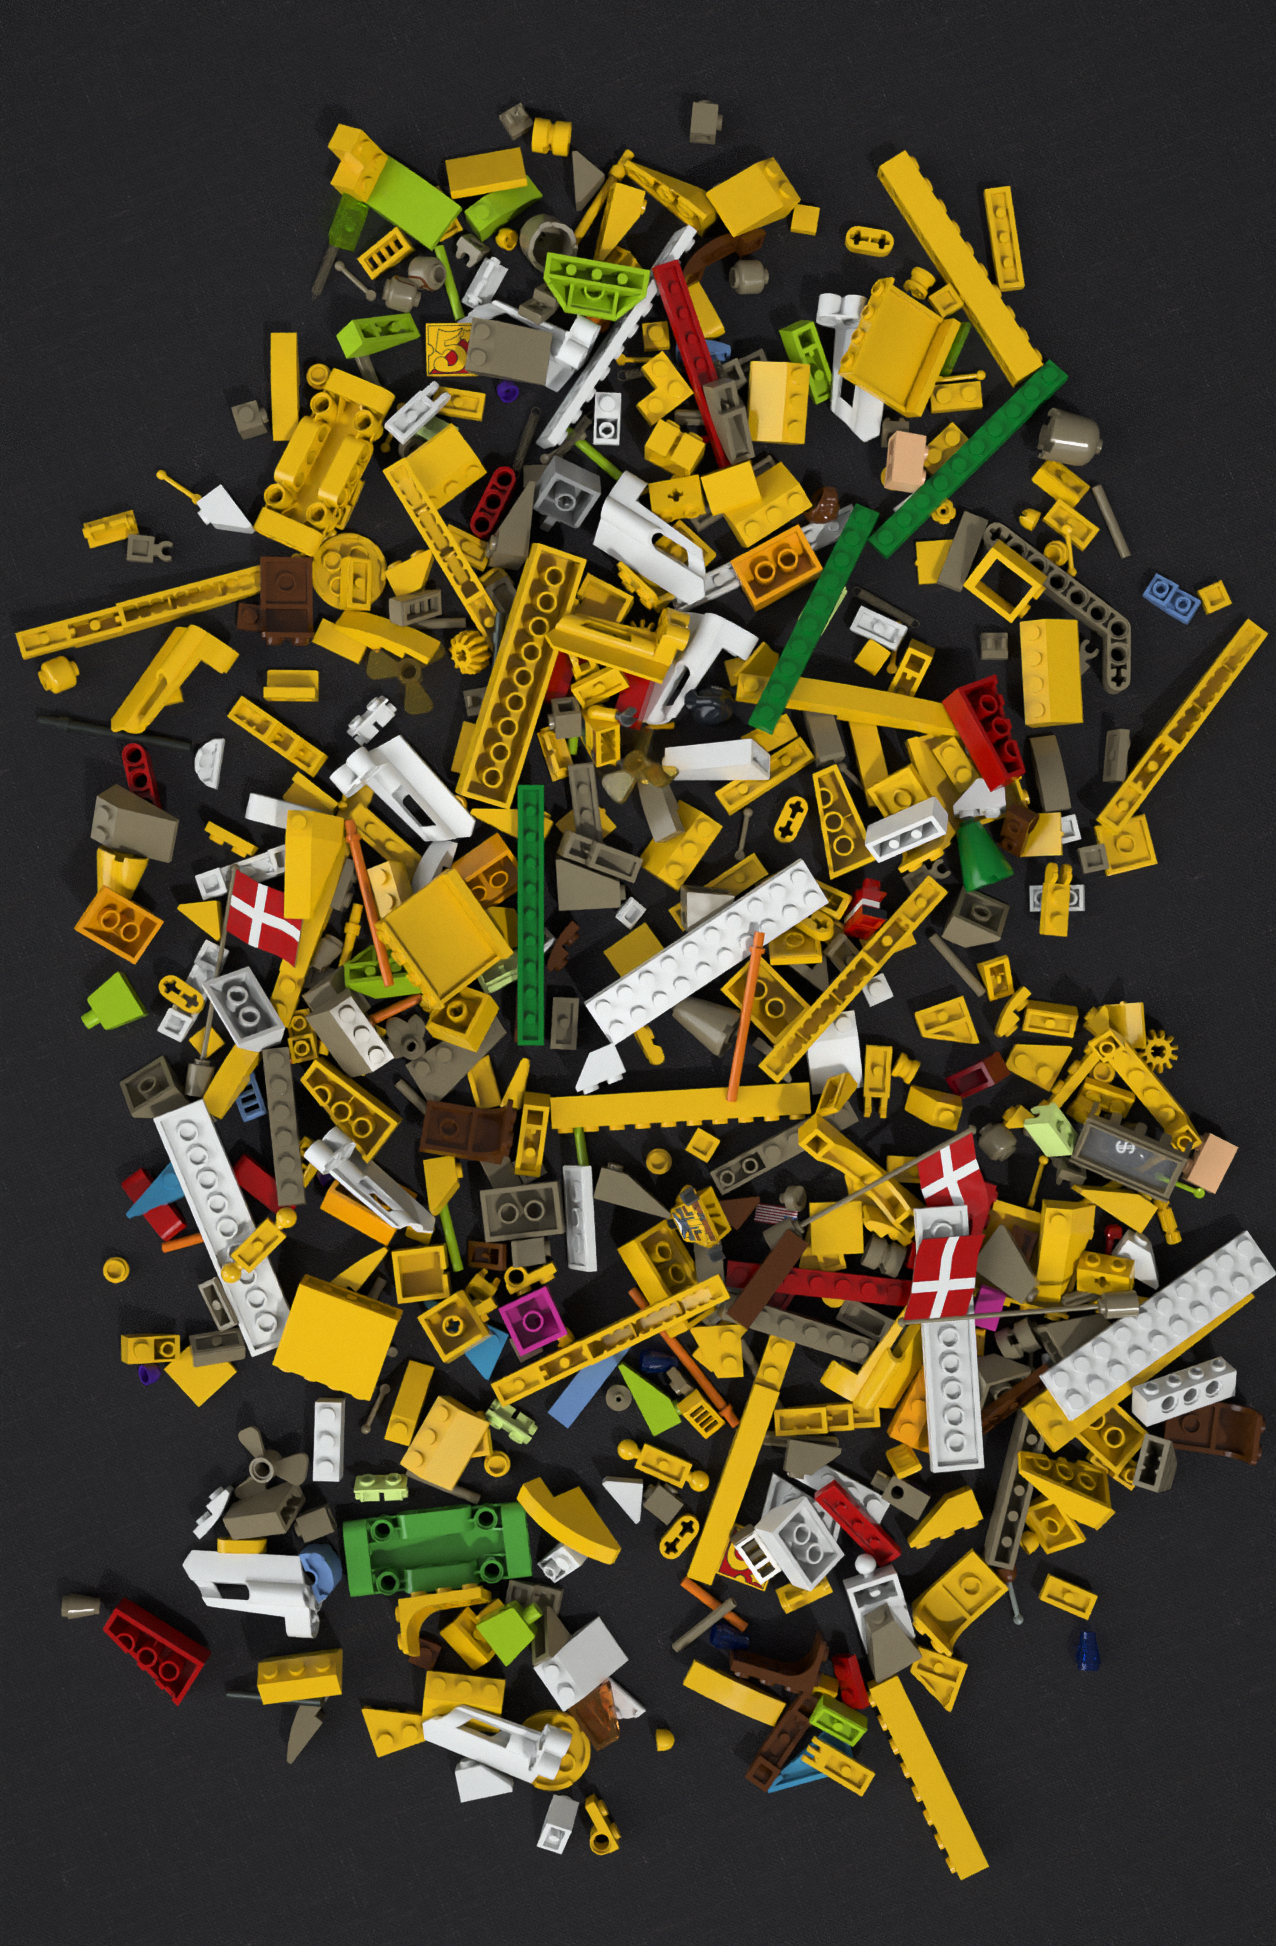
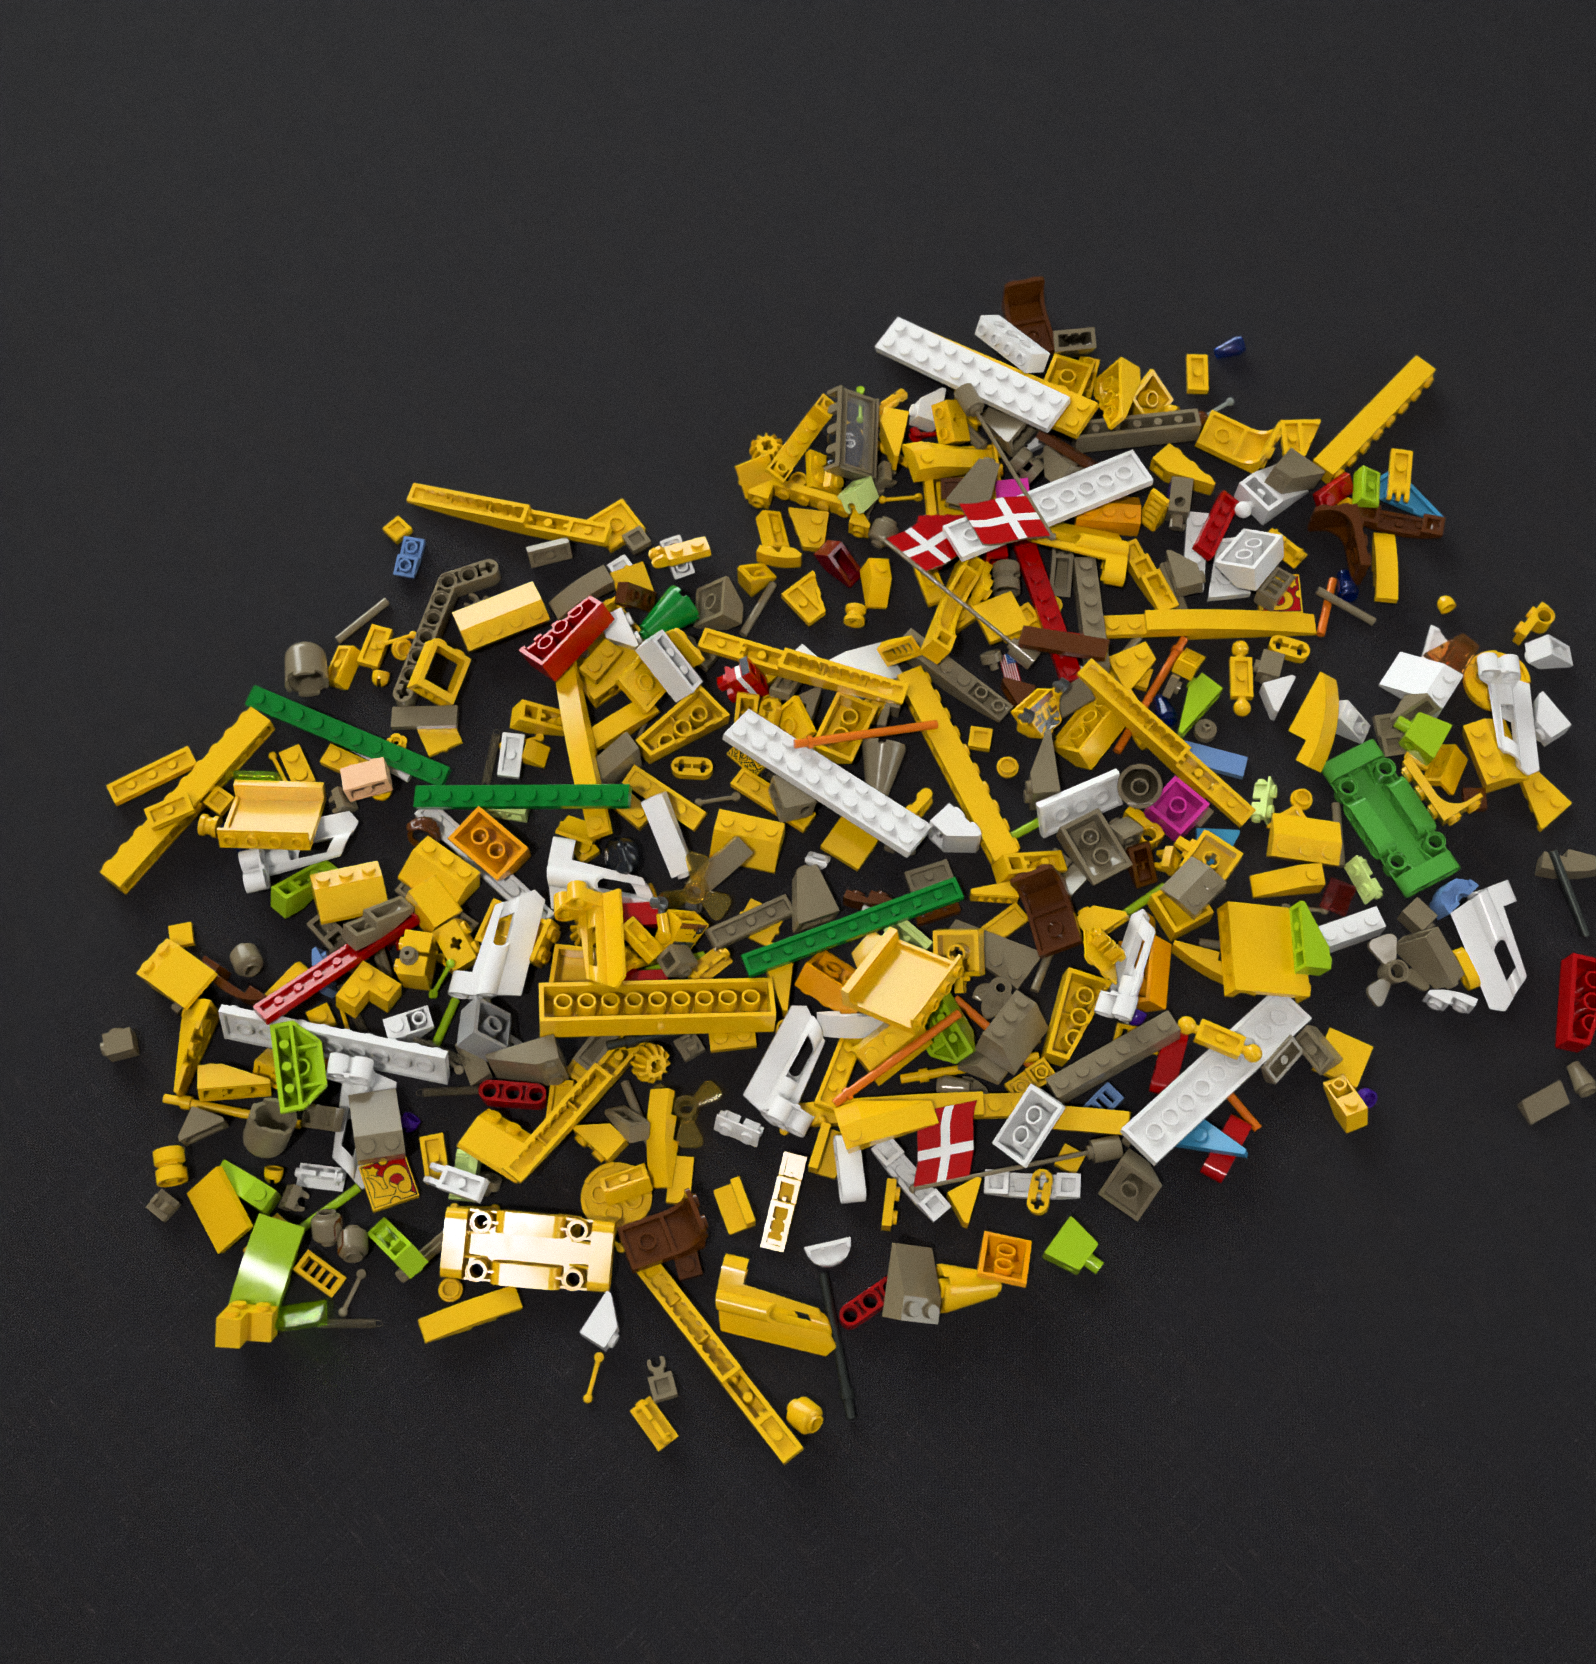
camera: 110 degrees left, 20 degrees down
(73, 1554) = (1544, 1102): none -> dark tan slope
(116, 1269) = (1294, 1160): yellow plate -> none
(250, 419) = (510, 1332): dark tan brick -> none
(300, 1676) = (1540, 877): yellow slope -> none
(321, 1387) = (1309, 946): none -> lime slope
(342, 895) = (878, 1090): dark tan plate -> none
(370, 1447) = (1337, 896): none -> clear red panel
(397, 1163) = (1102, 952): none -> yellow hinge
(427, 1291) = (1194, 887): none -> dark tan slope
(570, 1290) = (1139, 786): none -> dark tan cone
(599, 856) = (781, 897): dark tan slope -> none
(638, 459) = (433, 992): none -> lime hinge
(673, 442) = (412, 955): none -> dark tan piece
(870, 235) = (190, 878): yellow beam -> none
(877, 1077) = (872, 632): yellow hinge -> none
(945, 240) = (169, 811): none -> yellow plate
(994, 646) = (493, 669): dark tan tile -> none
(1209, 1162) = (828, 380): light nougat brick -> none

